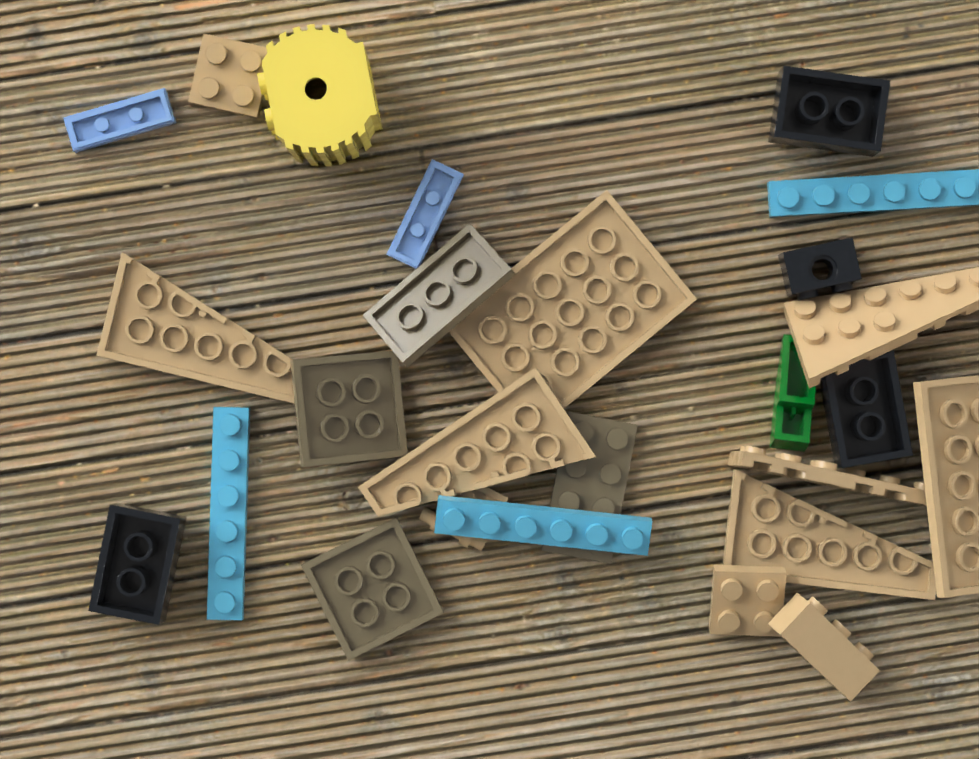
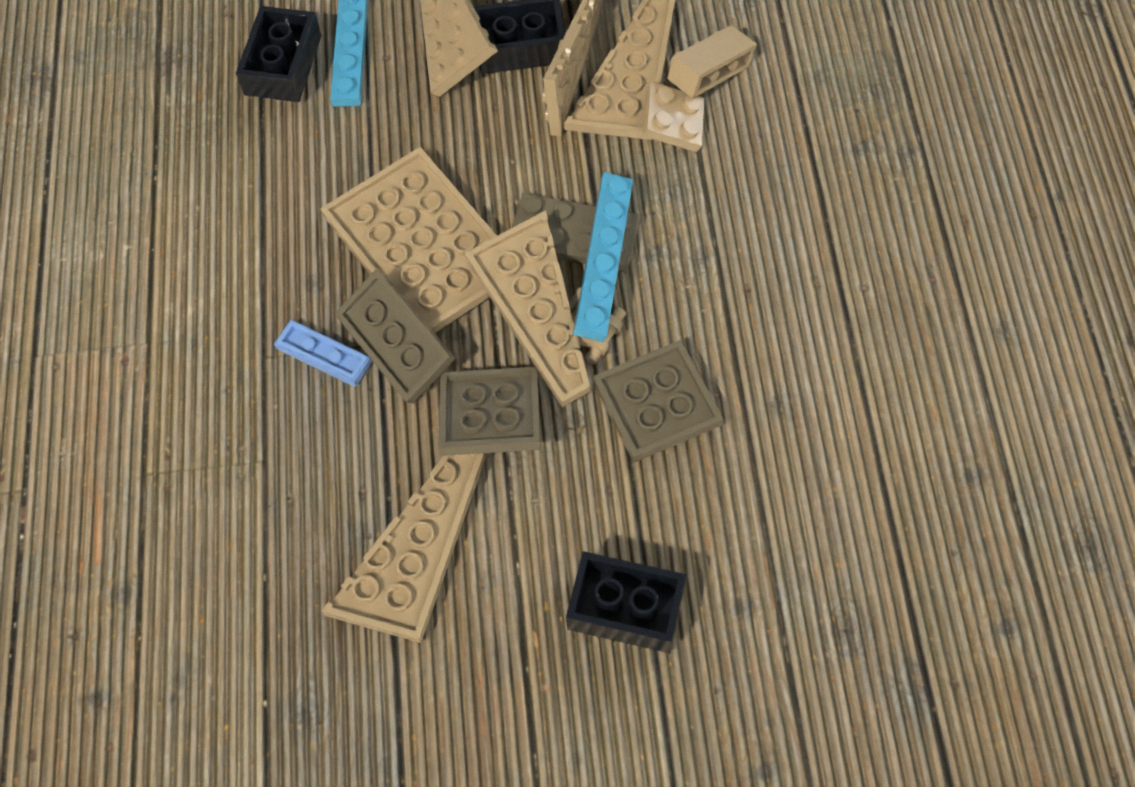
camera: 80 degrees left, 25 degrees down
(119, 120) = (194, 616): light blue tile -> none
(228, 76) = (170, 512): tan plate -> none
(228, 513) = (582, 526): medium azure plate -> none
(326, 126) = (196, 412): light yellow piece -> none
(791, 402) = (504, 85): green slope -> none
(837, 255) = (404, 66): black brick -> none

